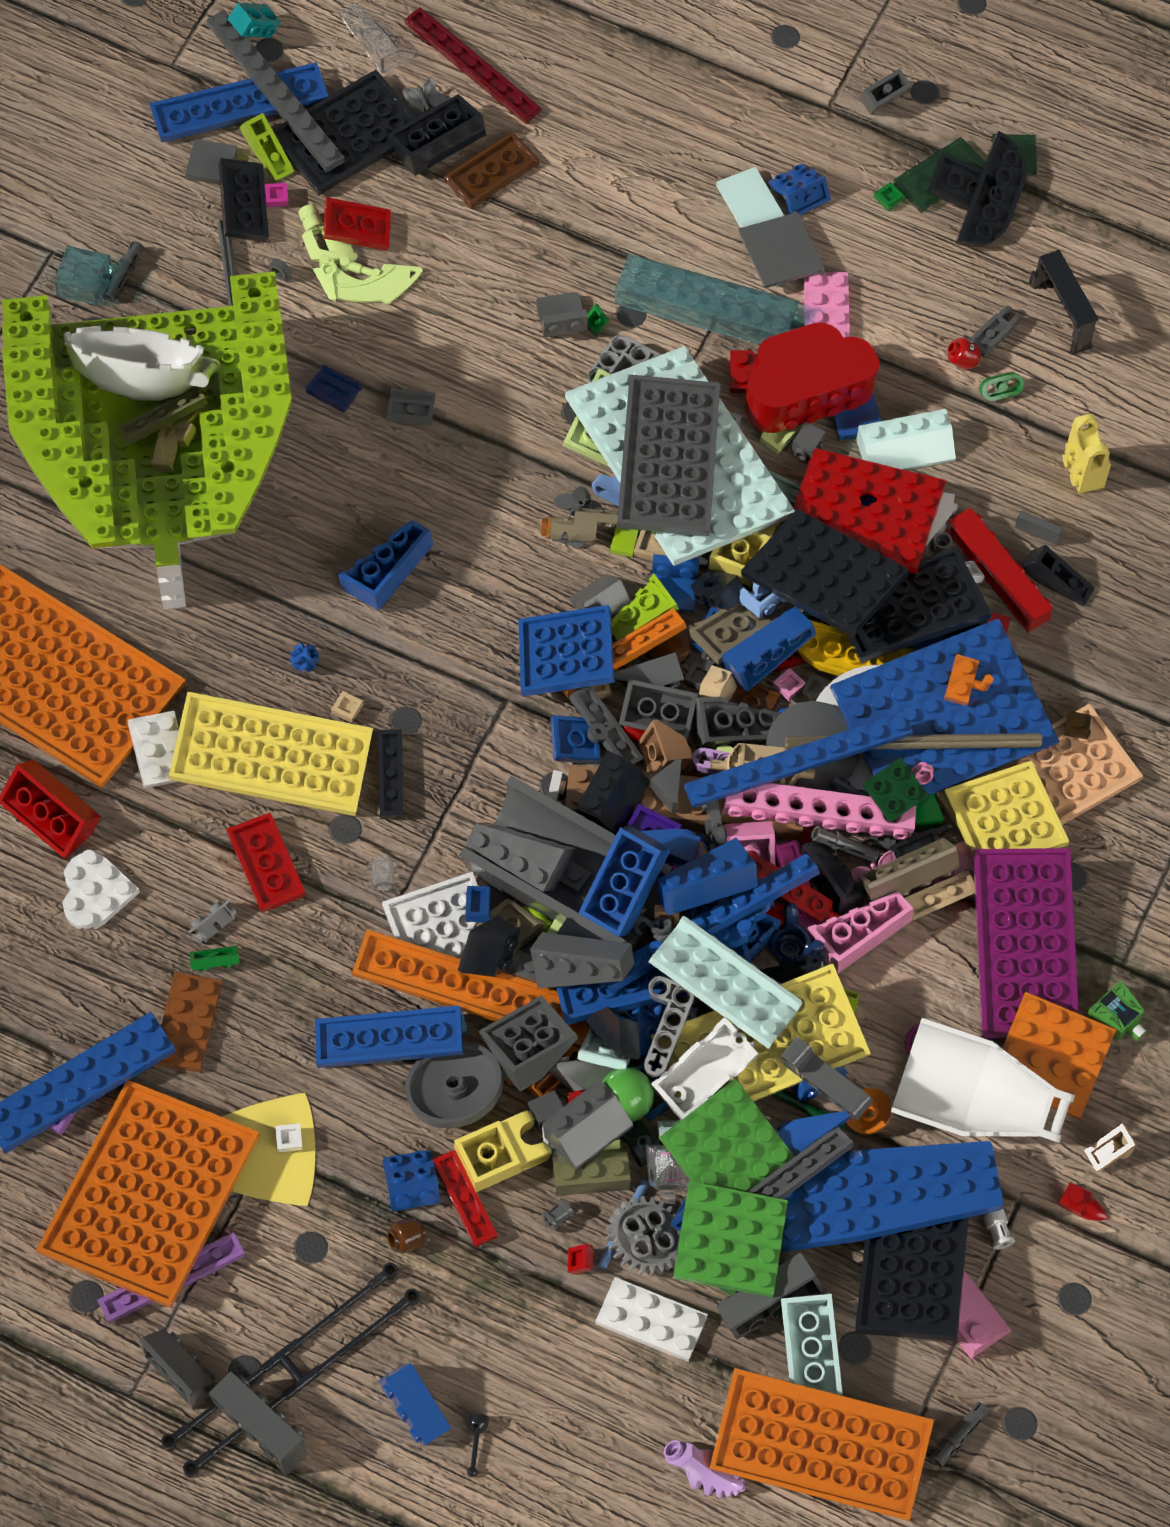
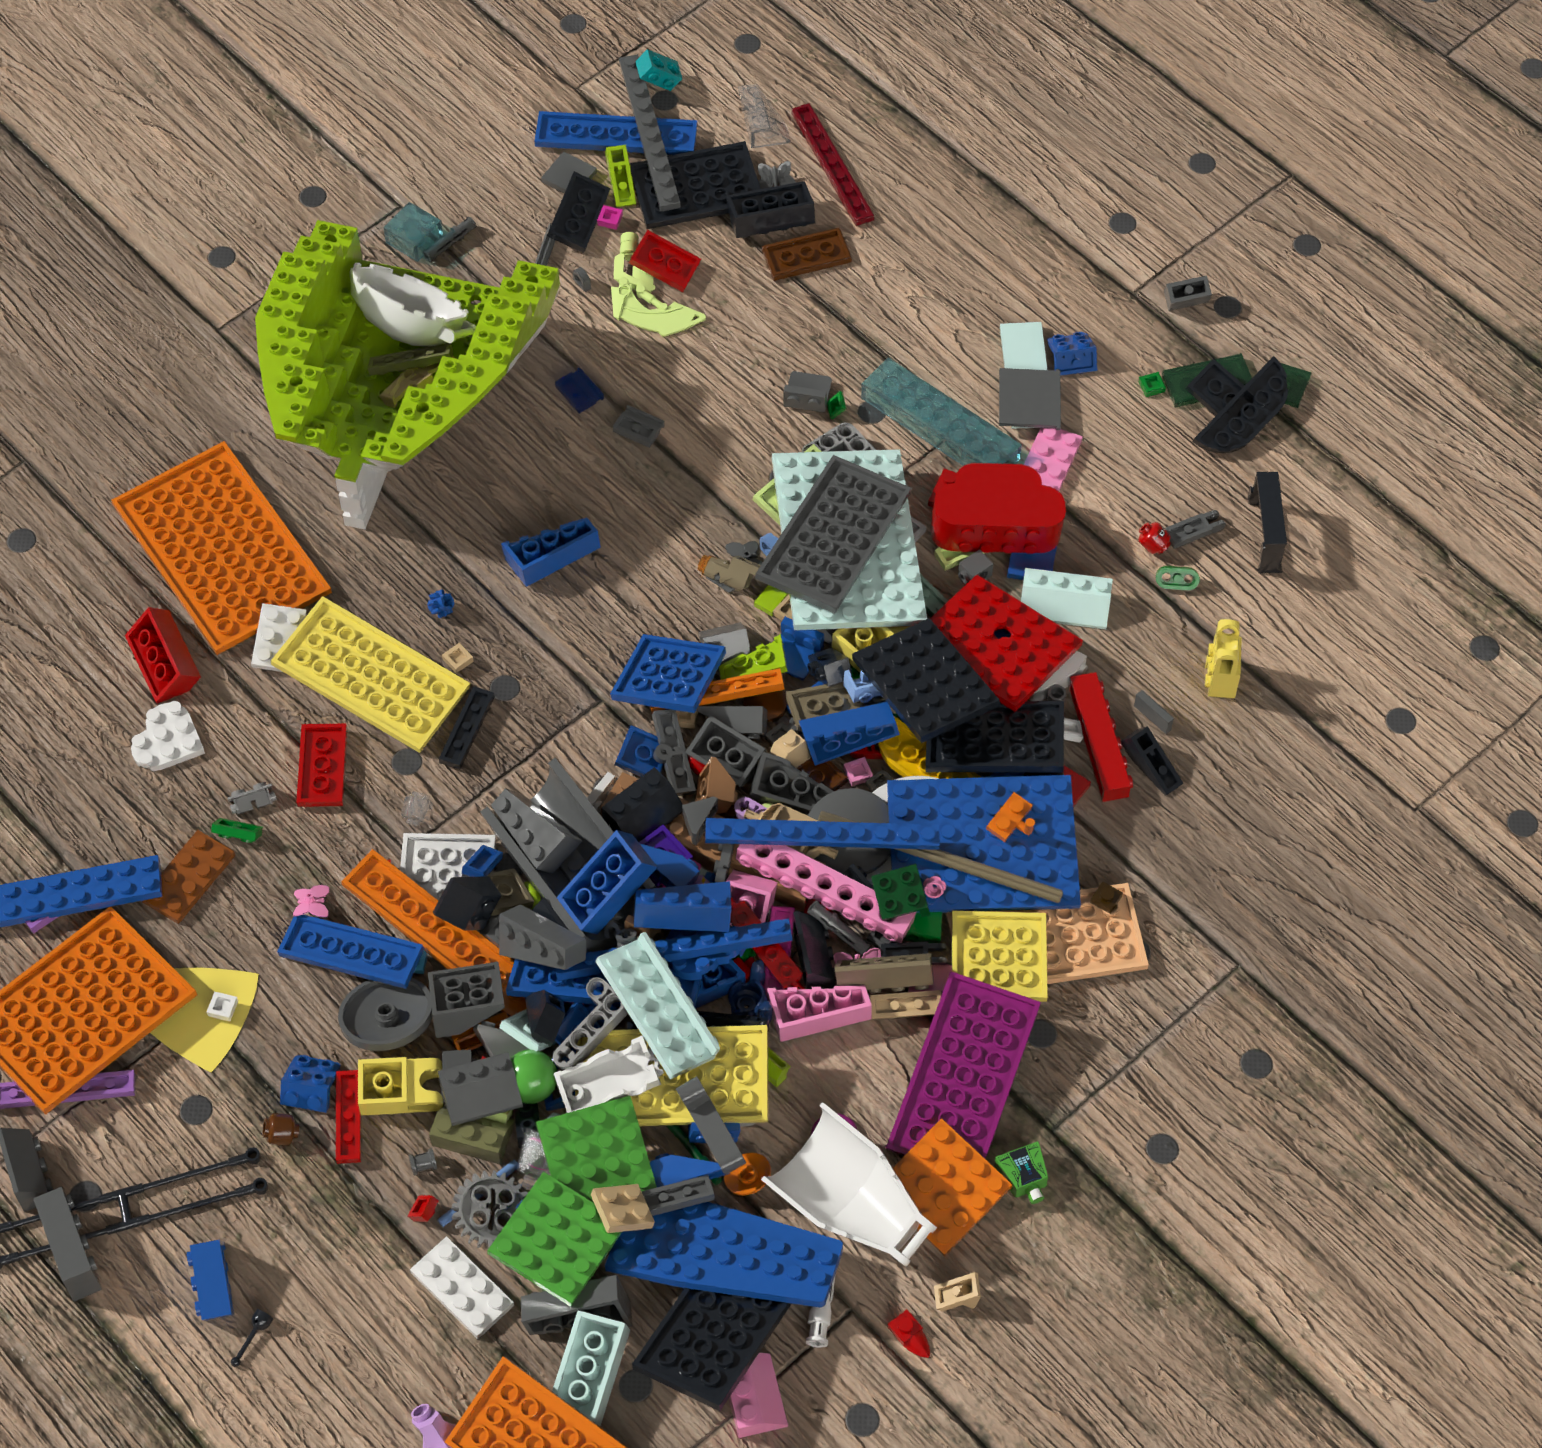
camera: 25 degrees right, 5 degrees down
(324, 1002) = (311, 900): none -> bright pink piece
(779, 1187) = (622, 1208): none -> tan plate

